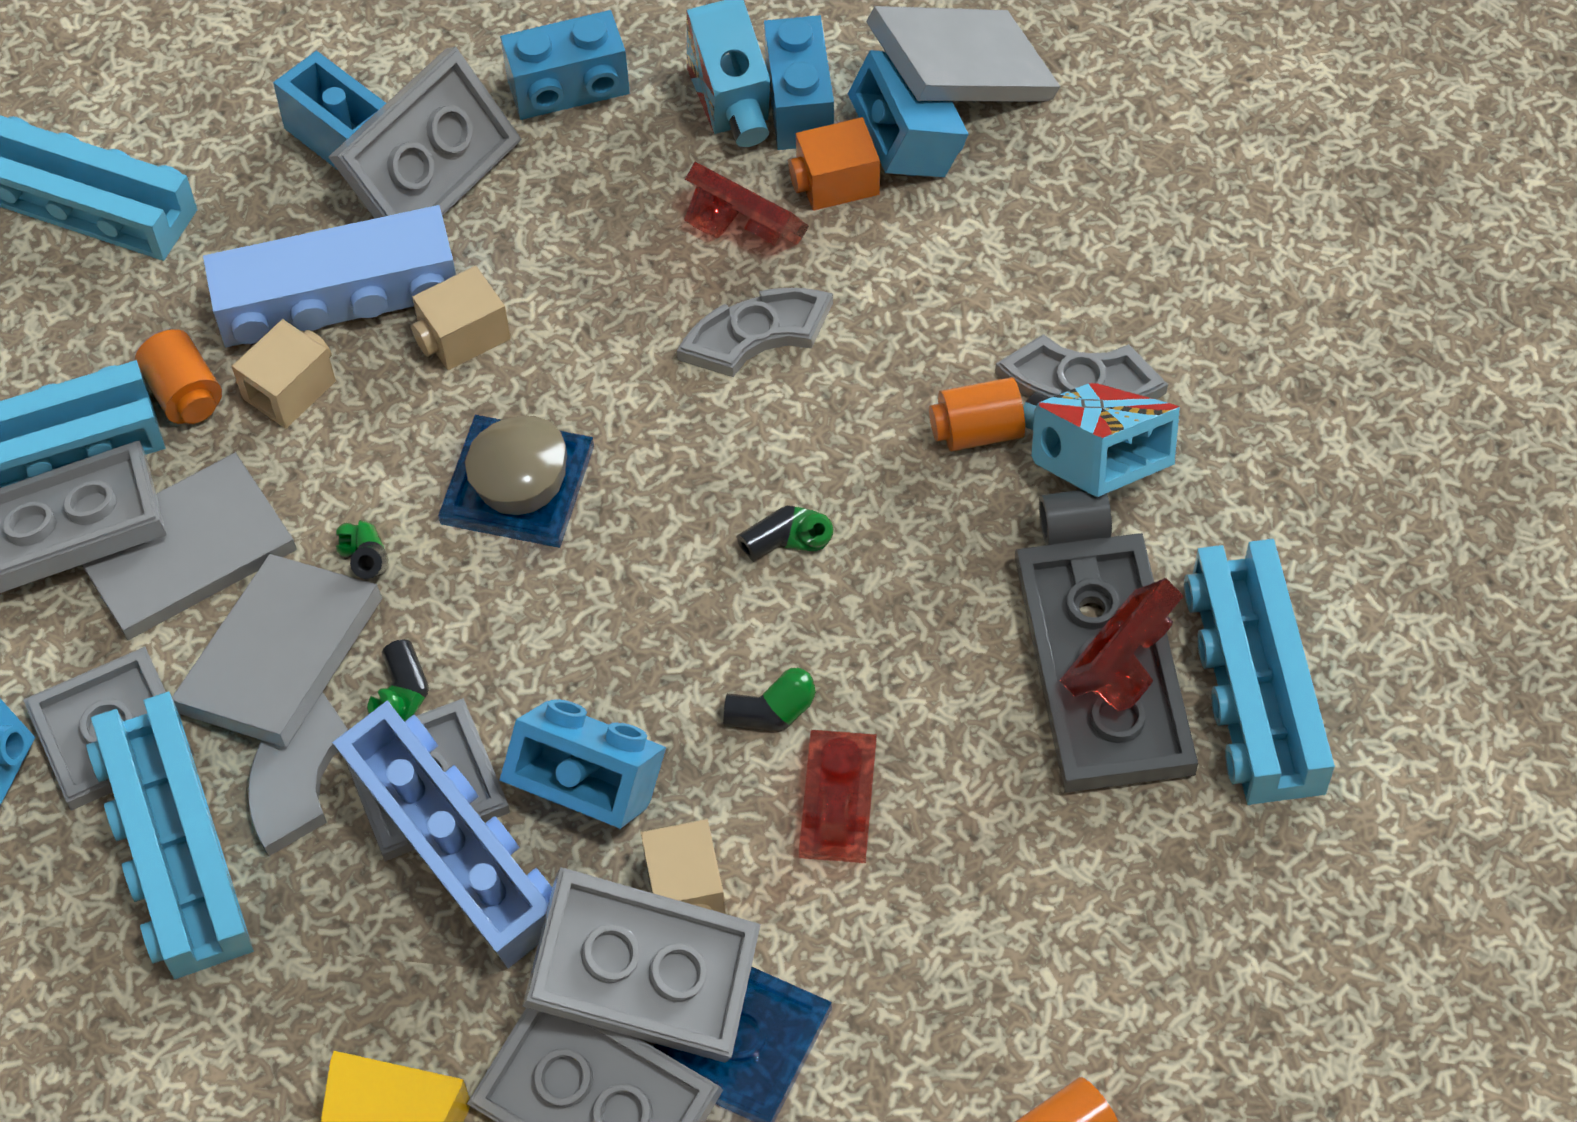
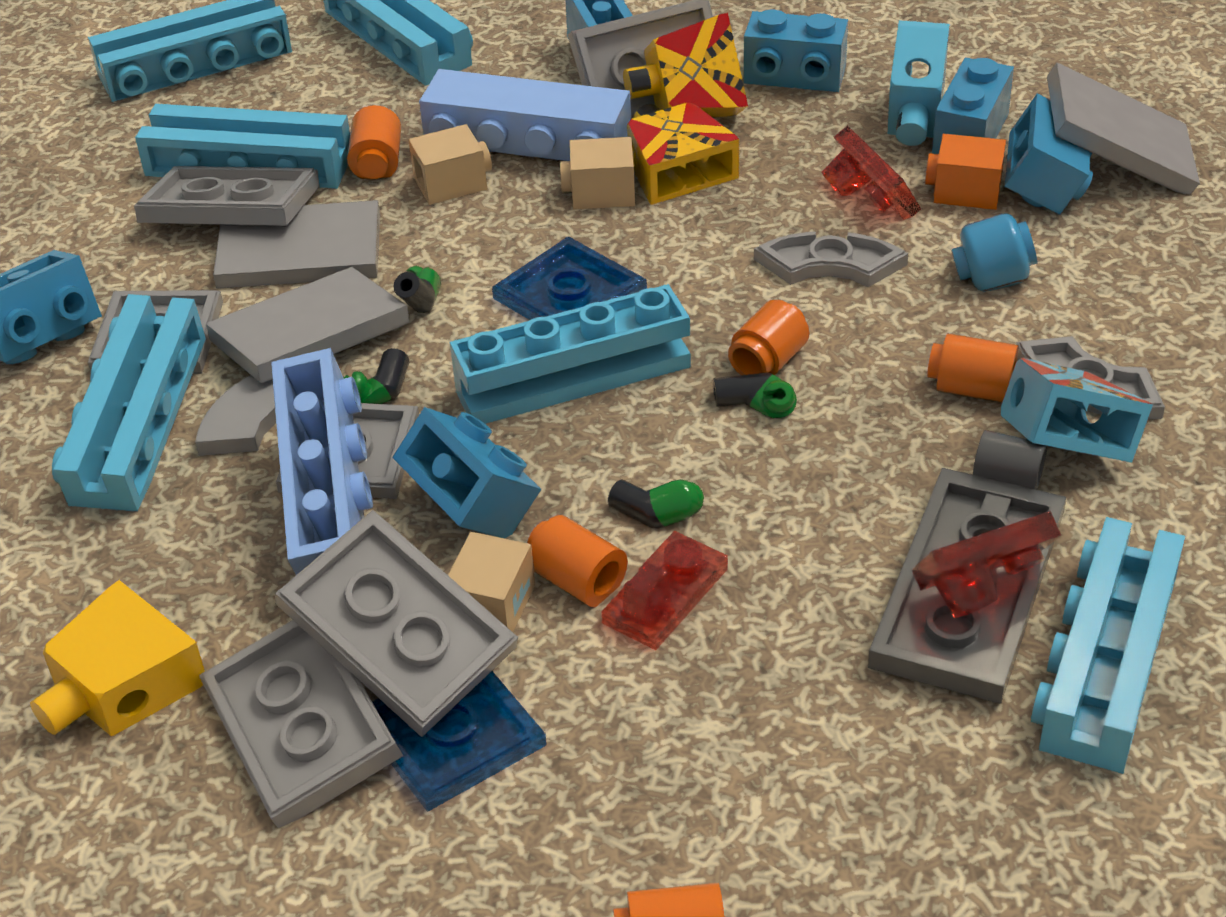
camera: 30 degrees right, 15 degrees down
(484, 147) = (692, 67): none -> torso
(517, 464) = (570, 271): dark tan hat -> none
(523, 251) = (680, 151): none -> yellow torso
(586, 572) = (571, 354): none -> medium azure brick
(742, 806) = (577, 560): none -> orange brick
(765, 465) = (768, 339): none -> orange brick
(921, 263) = (995, 253): none -> dark azure head

